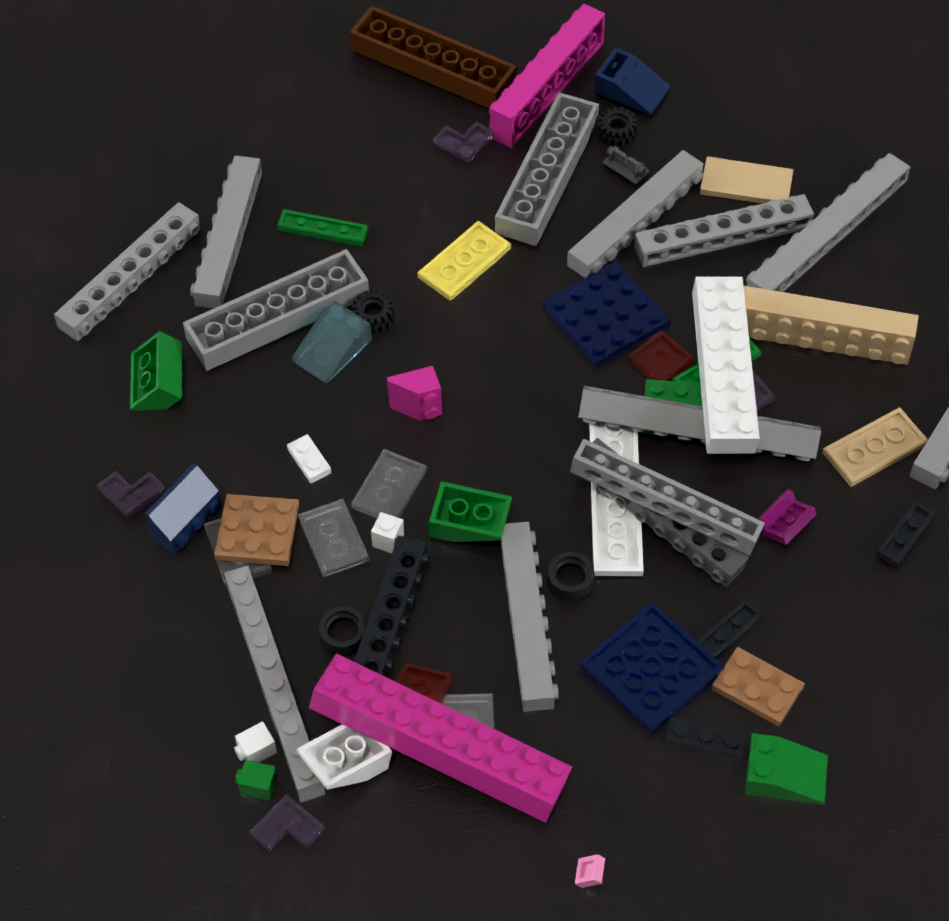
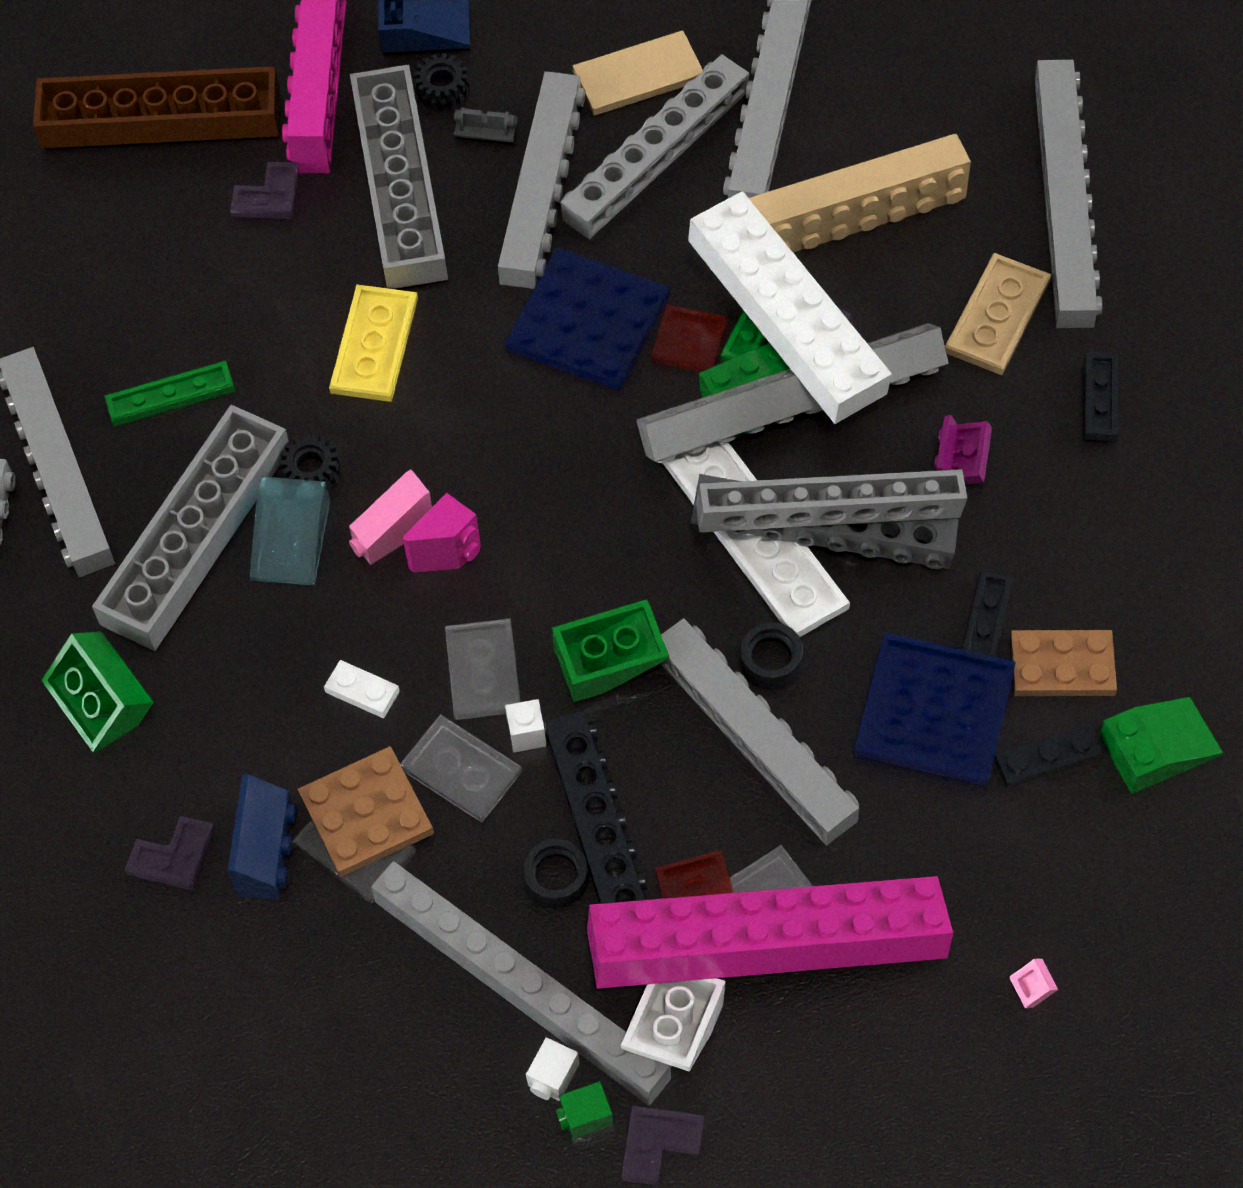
camera: 30 degrees left, 5 degrees up
(392, 363) = (390, 518): none -> bright pink slope

